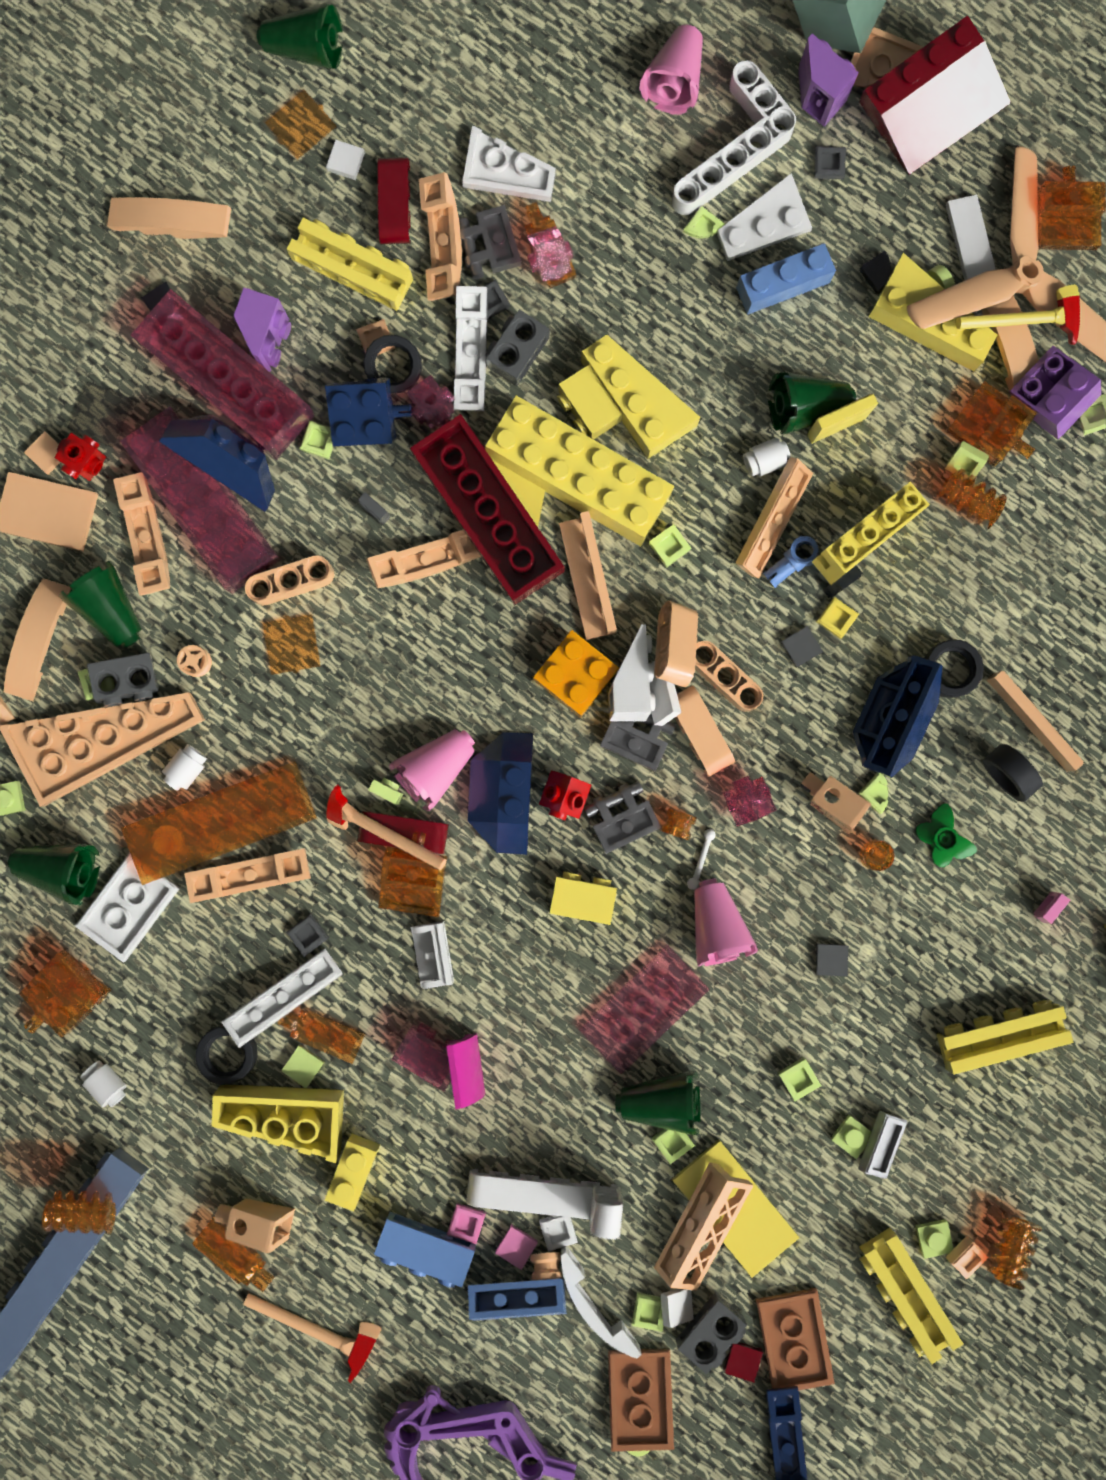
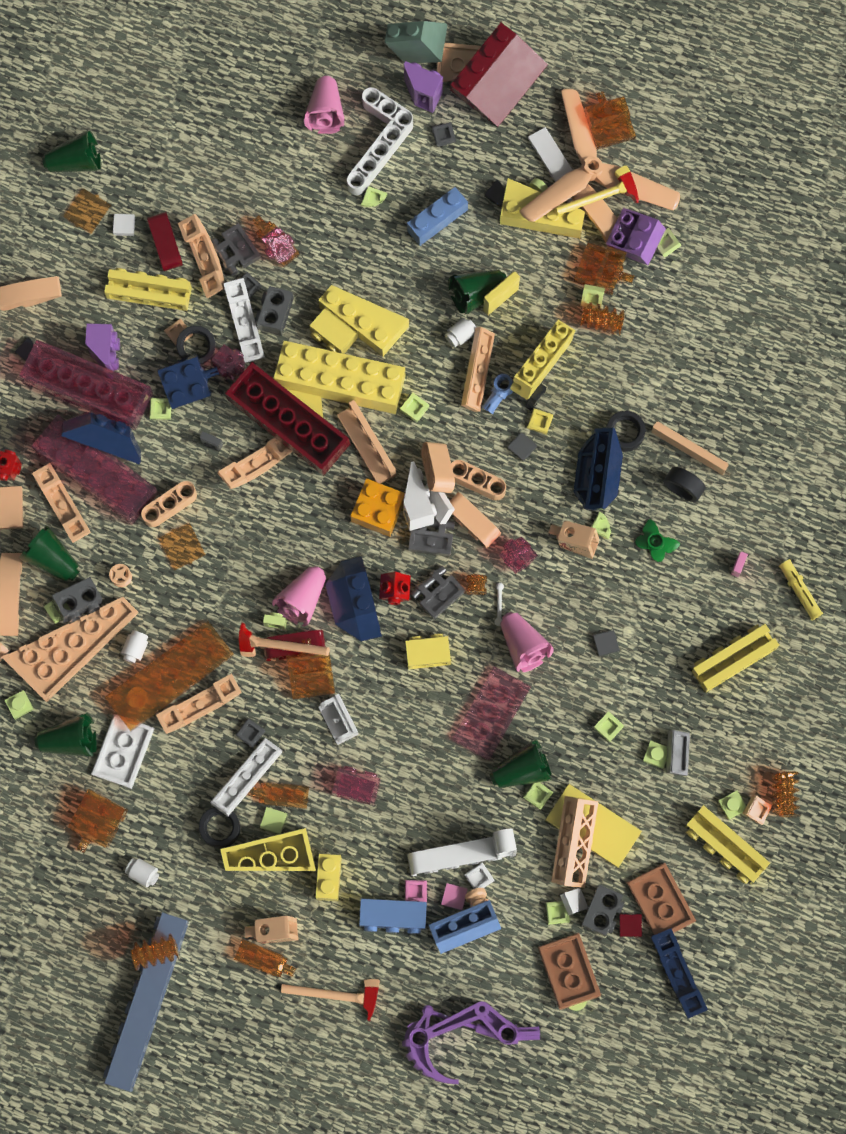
camera: 15 degrees left, 10 degrees down
(466, 1071) = (384, 784): dark pink slope -> none
(502, 170) = (231, 201): white wing -> none
(617, 1335) = (541, 932): white slope -> none
(767, 221) = (414, 183): white wing -> none
(882, 853) = (612, 562): clear orange wheel -> none

